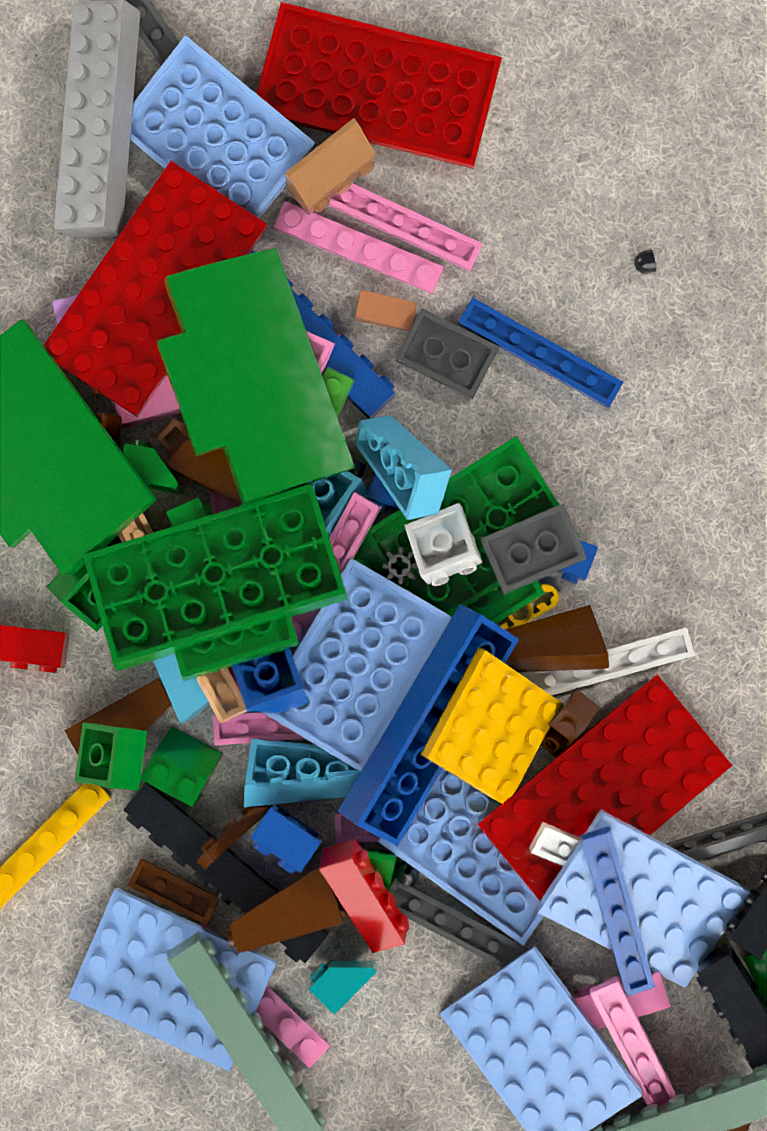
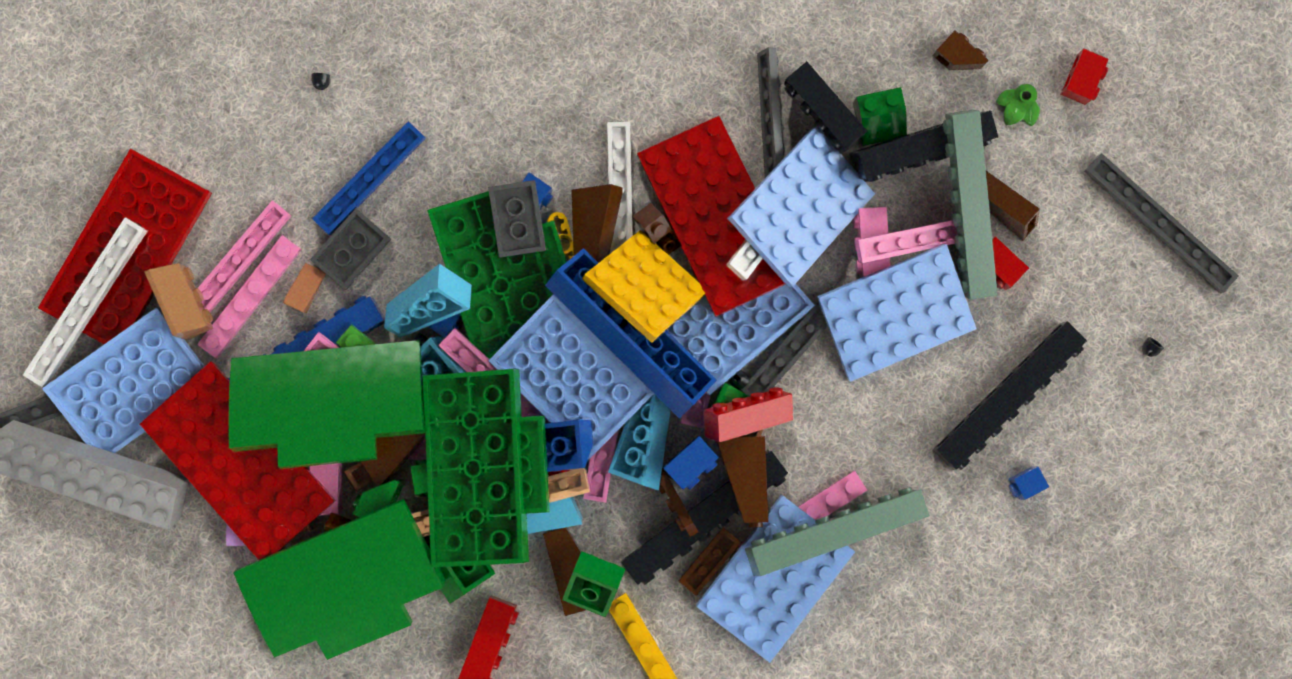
camera: 80 degrees left, 0 degrees up
(181, 766) = (615, 531): green slope -> none
(301, 56) = (85, 302): none -> white plate
(340, 981) = (808, 449): teal slope -> none
(397, 572) = (498, 326): dark grey gear -> none
(443, 545) = (496, 287): white plate -> none
(617, 910) = (805, 225): plate -> none

